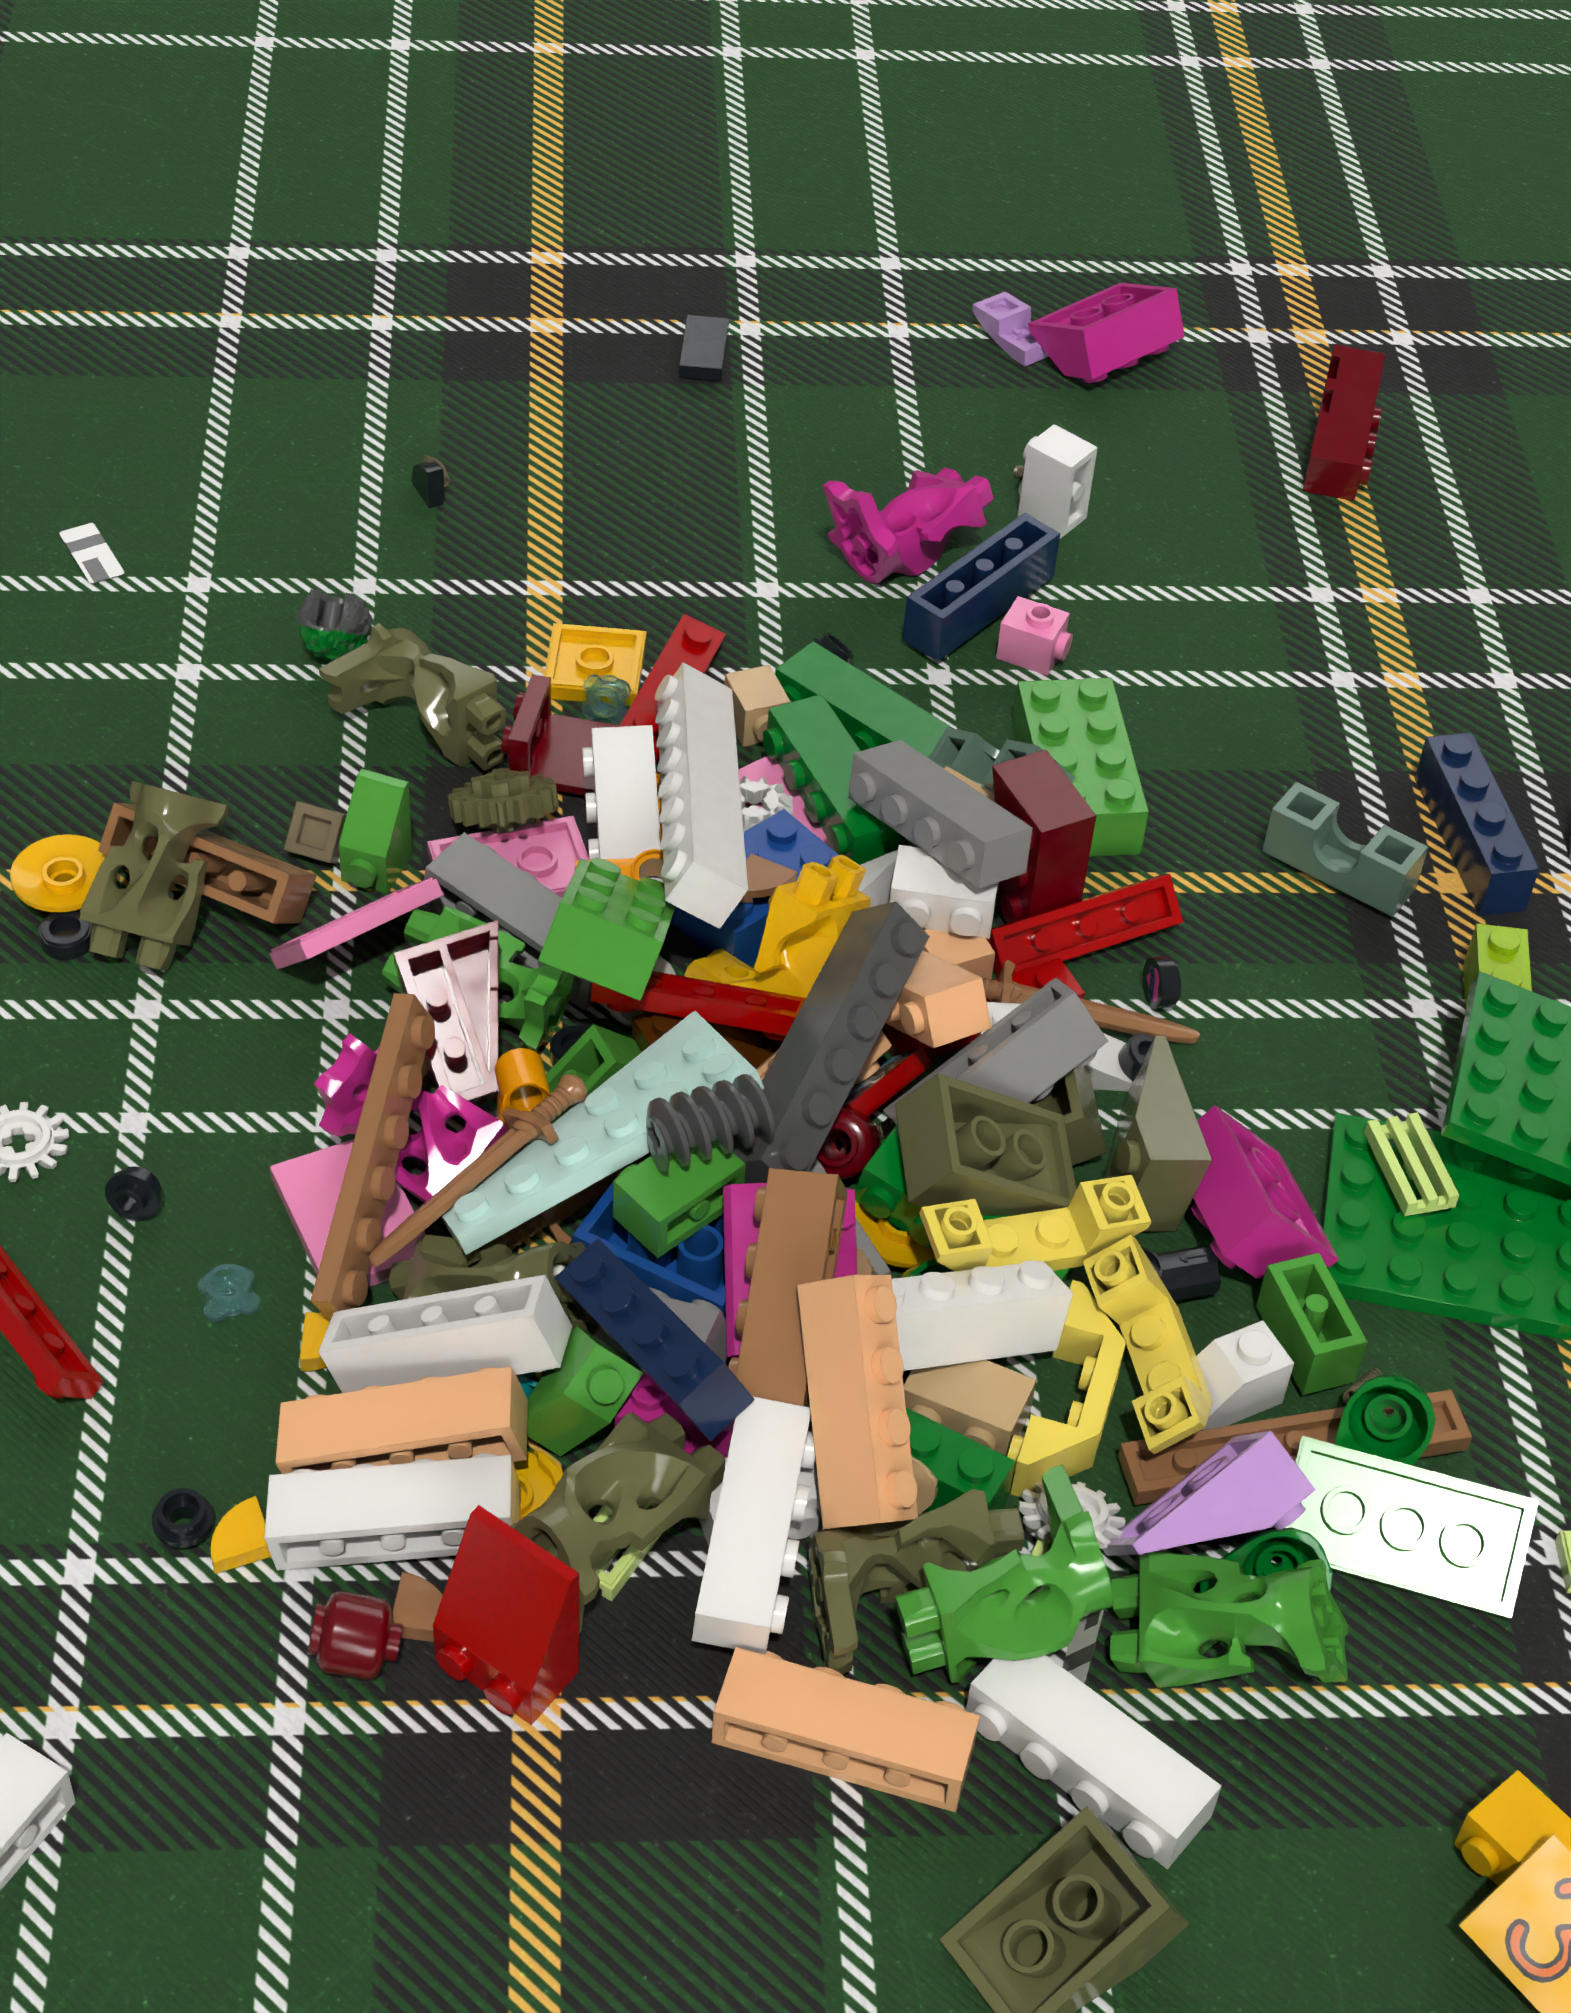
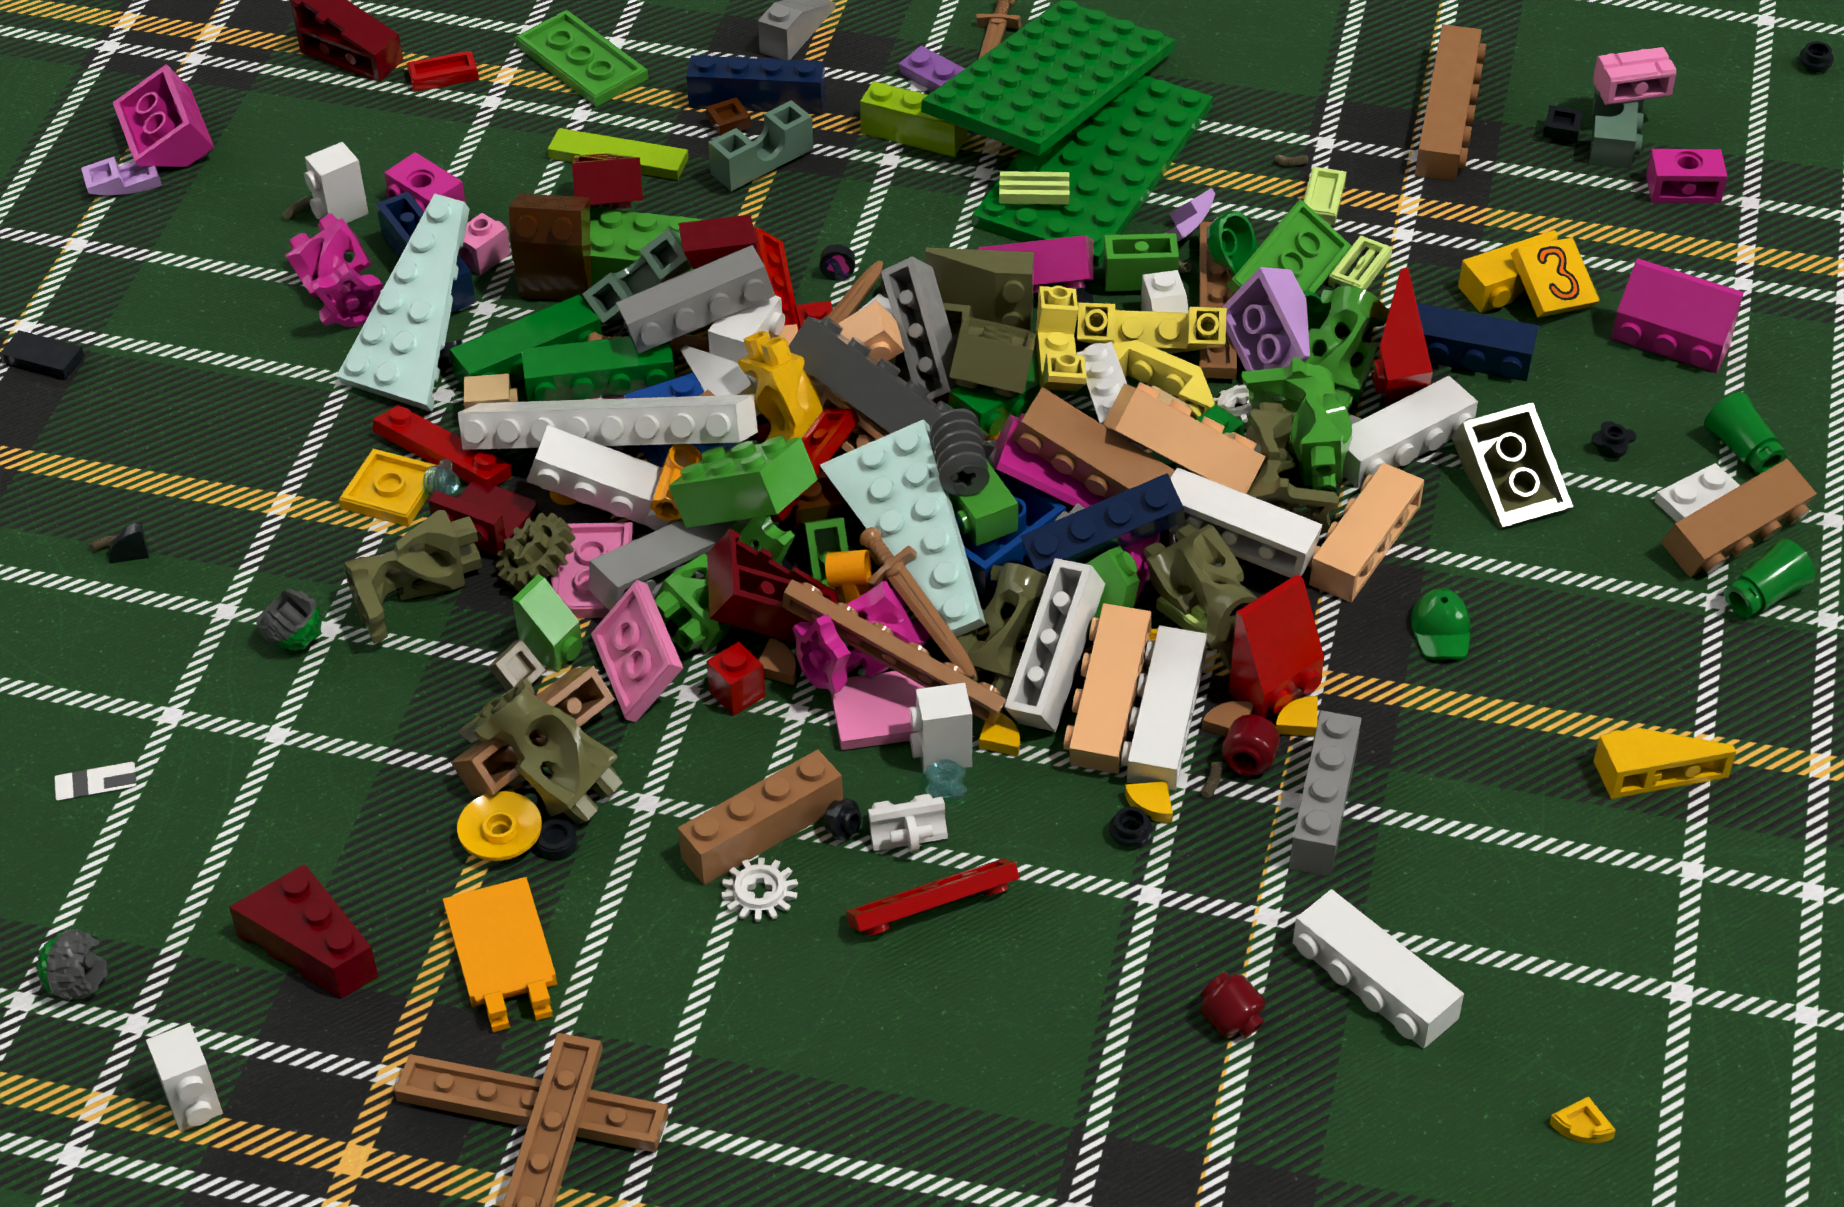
camera: 70 degrees left, 0 degrees up
(116, 1107) = (759, 817): none -> medium nougat brick
(130, 1262) = (907, 823): none -> white hips
(276, 1747) = (1325, 793): none -> light grey brick
(283, 1251) = (942, 725): none -> white brick
(299, 1607) = (1213, 777): none -> dark tan leg
(336, 1018) = (736, 678): none -> red brick
(443, 1700) = (1299, 717): none -> yellow tile
(678, 1885) = (1441, 625): none -> green cap
(857, 590) = (410, 320): none -> light aqua wing
(1011, 662) = (551, 245): none -> reddish brown slope
(1105, 565) = (422, 180): none -> dark pink brick
(1157, 693) = (608, 179): none -> dark red wedge
(1243, 1686) = (1403, 353): none -> red slope
(1276, 724) = (654, 158): none -> lime tile
(1344, 1808) = (1478, 342): none -> dark blue brick
(1347, 535) = (442, 71): none -> red tile
(1402, 810) = (728, 116): none -> reddish brown plate
(1446, 652) = (581, 58): none -> bright green tile
(1463, 1374) = (1191, 214): none -> lavender slope
(1474, 1648) = (1338, 274): none -> yellowish green tile

